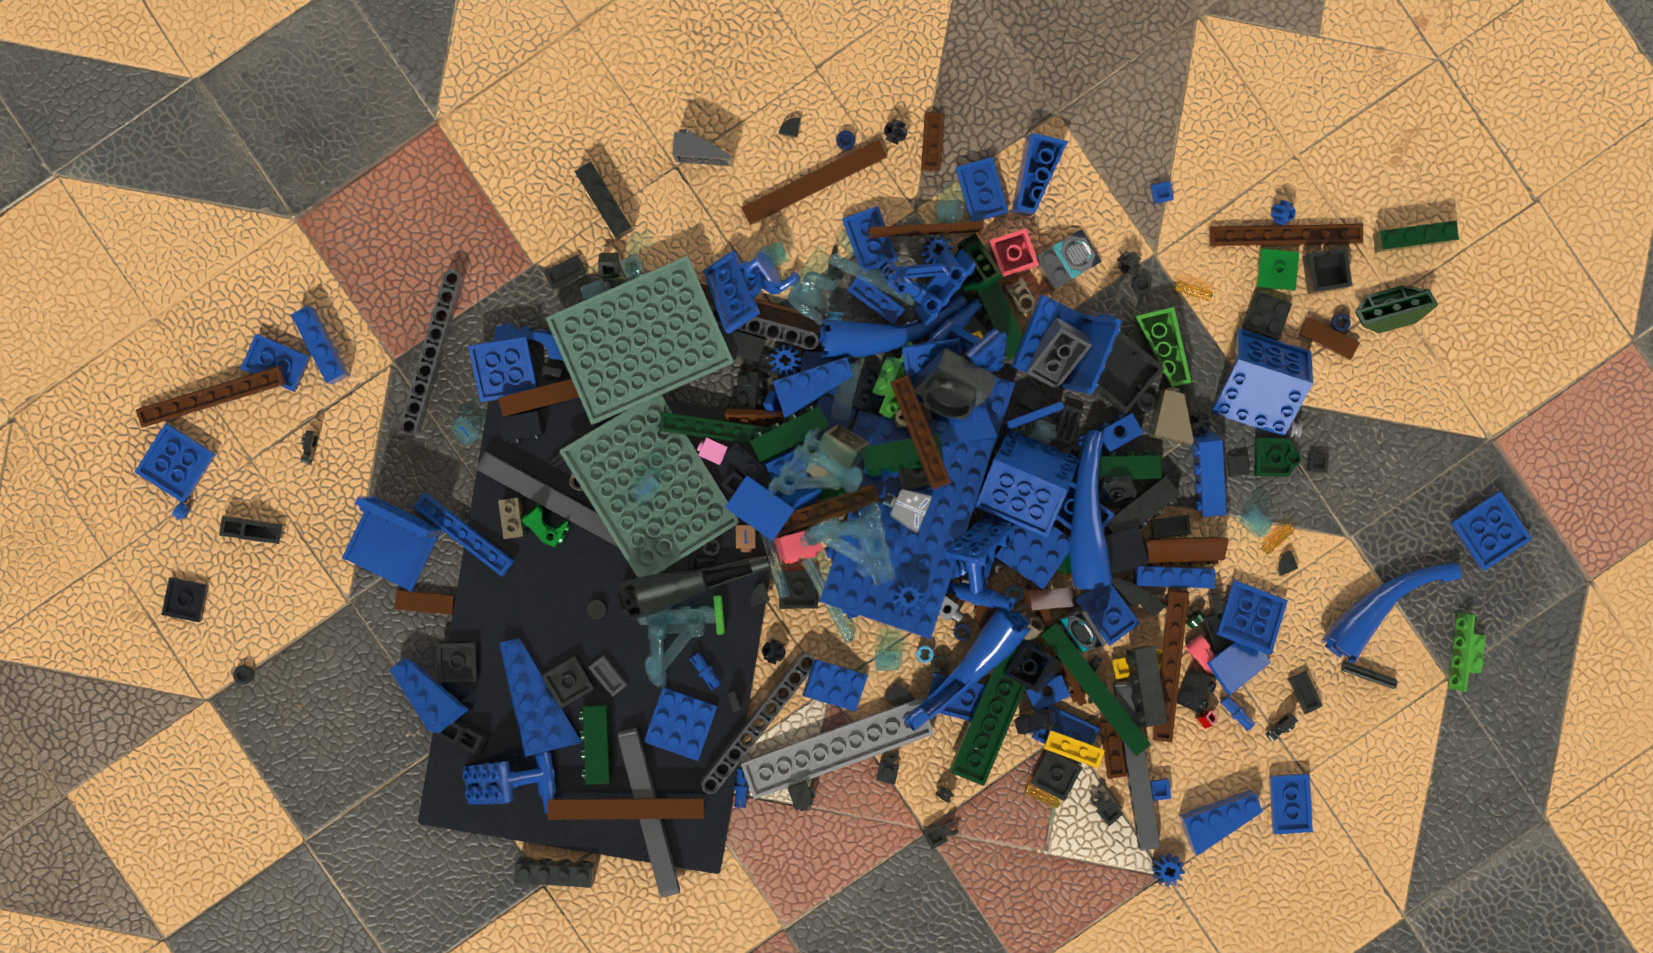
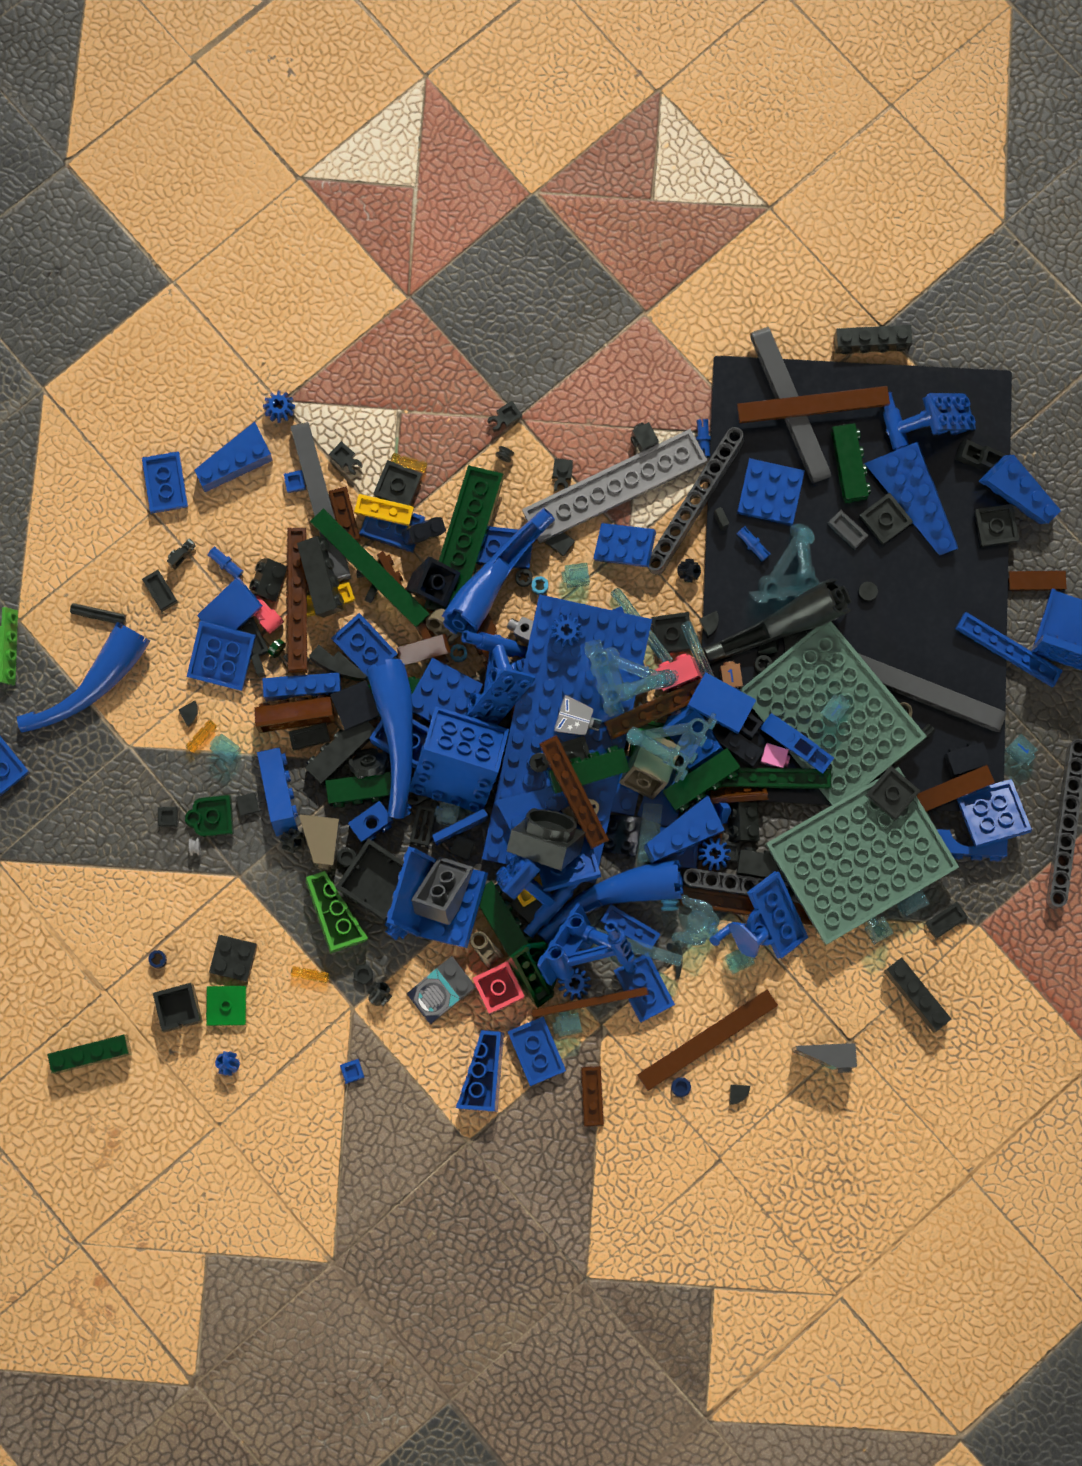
camera: 170 degrees right, 10 degrees down
(511, 518) = (963, 669): dark tan brick -> none
(534, 520) = (942, 668): green tile -> none
(553, 371) = (944, 818): pearl dark grey tile -> none
(601, 397) = (892, 793): none -> pearl dark grey plate
(609, 265) = (903, 930): pearl dark grey plate -> none
(689, 459) = (797, 743): none -> blue slope
(719, 615) = (747, 599): bright green tile -> none
(891, 370) = (608, 851): bright green bracket -> none
(895, 131) = (631, 1100): black gear -> none
(954, 466) = (540, 764): none -> pearl dark grey wheel
(957, 634) = (500, 613): dark blue bush -> none
(1058, 692) = (404, 562): blue brick -> none
(1080, 630) = (390, 623): slope -> none
(1207, 719) = (260, 553): red piece -> none
(1265, 383) = (230, 889): bracket -> none
(1286, 235) = (221, 1042): reddish brown tile -> none
(1329, 338) = (167, 942): reddish brown tile -> none
(1395, 308) = (106, 978): dark green wedge -> none

